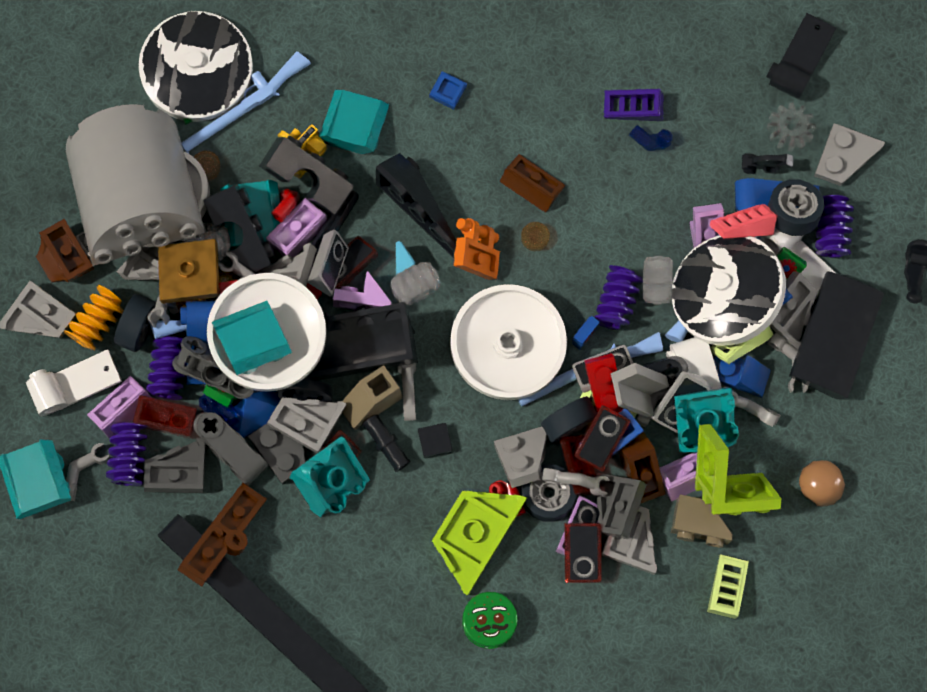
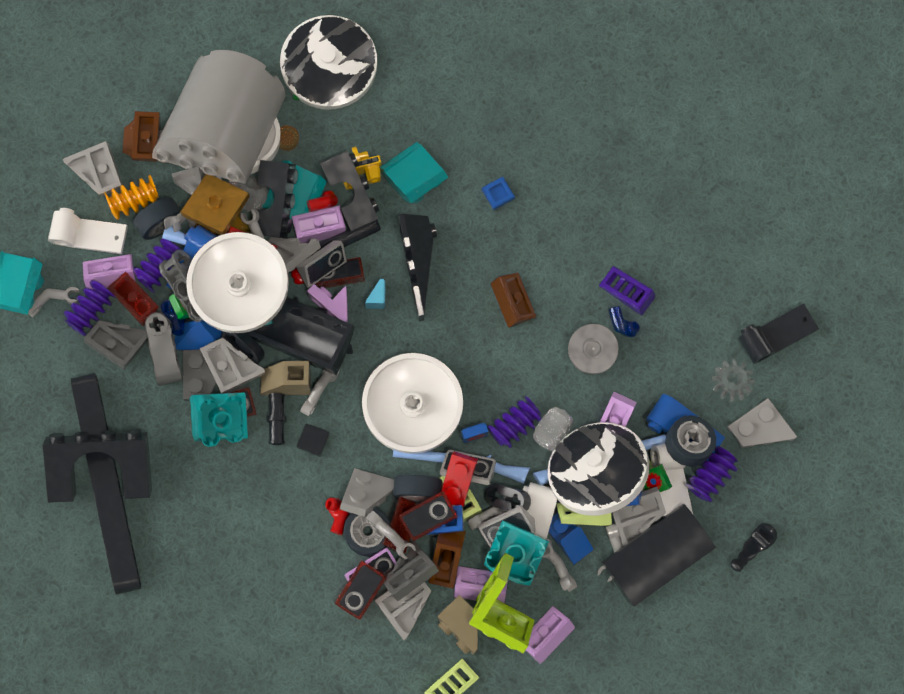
camera: 40 degrees right, 0 degrees up
(206, 607) = (127, 448): none -> black arch
(223, 535) = (113, 408): reddish brown hinge -> none
(252, 338) = (221, 279): teal slope -> none
(265, 92) = (365, 112): light blue piece -> none
(415, 283) = (374, 317): clear gear -> none
(474, 533) = (293, 524): lime wing -> none
(476, 256) = (429, 325): orange plate -> none
(489, 620) = (261, 594): green head -> none
(535, 236) = (488, 340): clear orange tile -> none
(635, 385) = (477, 496): light grey panel -> none
(642, 181) = (593, 349): none -> flat silver piece
(748, 222) = (647, 429): coral slope -> none
(769, 163) = (700, 399): black piece -> none
(783, 473) = (548, 634): none -> lavender slope
(822, 483) = (573, 656): medium nougat hair -> none

